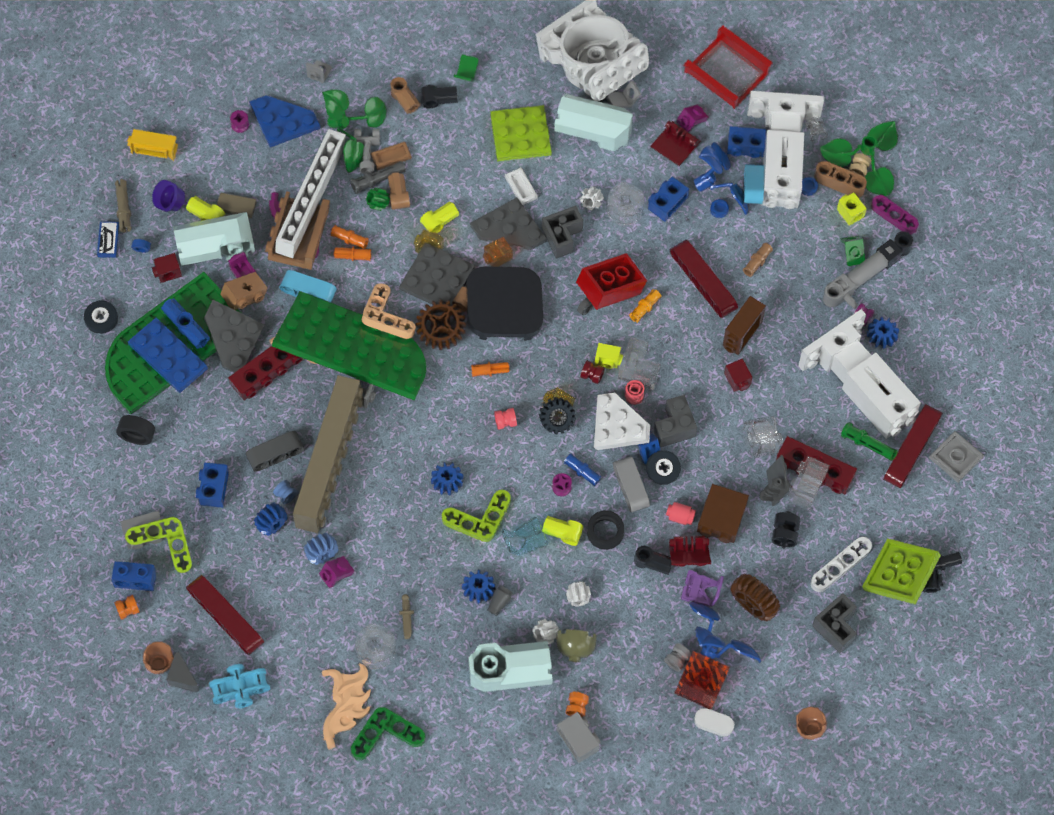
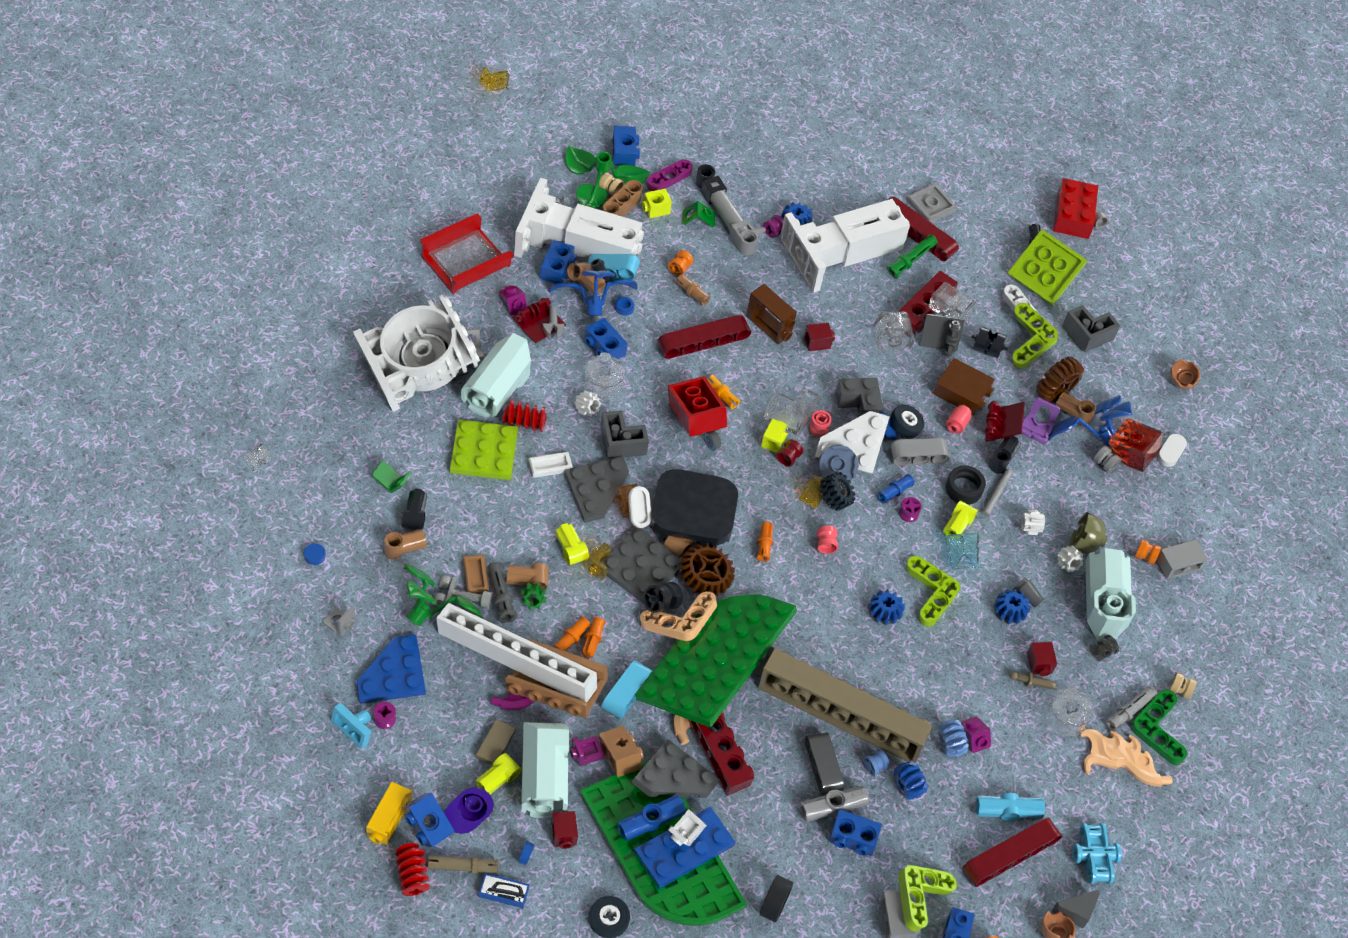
camera: 85 degrees left, 10 degrees down
(107, 170) = (411, 869): none -> red piece
(158, 165) = (439, 826): none -> blue brick
(172, 345) = (687, 829): none -> white bracket
(225, 101) = (352, 725): none -> medium azure tile
(232, 455) = (846, 800): none -> light grey piece
(268, 608) = (1010, 807): none -> medium azure piece
(377, 38) = (314, 554): none -> blue tile
(390, 699) = (1126, 712): none -> light grey pin
(402, 295) = (662, 597): none -> black wheel
(428, 618) = (1042, 658): none -> dark red brick
(432, 748) = (1187, 687): none -> tan wheel
(455, 673) = (1104, 648): none -> clear smoke bush
(487, 256) = (639, 507): none -> white tile
(562, 153) = (525, 415): none -> red piece
(591, 414) = (839, 459): none -> sand blue tile
(608, 561) = (997, 492): none -> light grey bar
(673, 153) = (547, 328): none -> light grey bar
(732, 621) = (1075, 407): none -> medium nougat piece
(735, 161) = (587, 281): none -> medium nougat piece
(740, 172) = (598, 265): none -> black pin
(785, 242) = (680, 263): none -> orange wheel
(808, 575) = (1039, 335): none -> lime beam
(921, 161) = (624, 145): none -> blue brick
(952, 41) = (495, 80): none -> clear yellow bracket
(999, 623) = (1101, 220): none -> light grey hinge
(1001, 594) = (1075, 208): none -> red brick

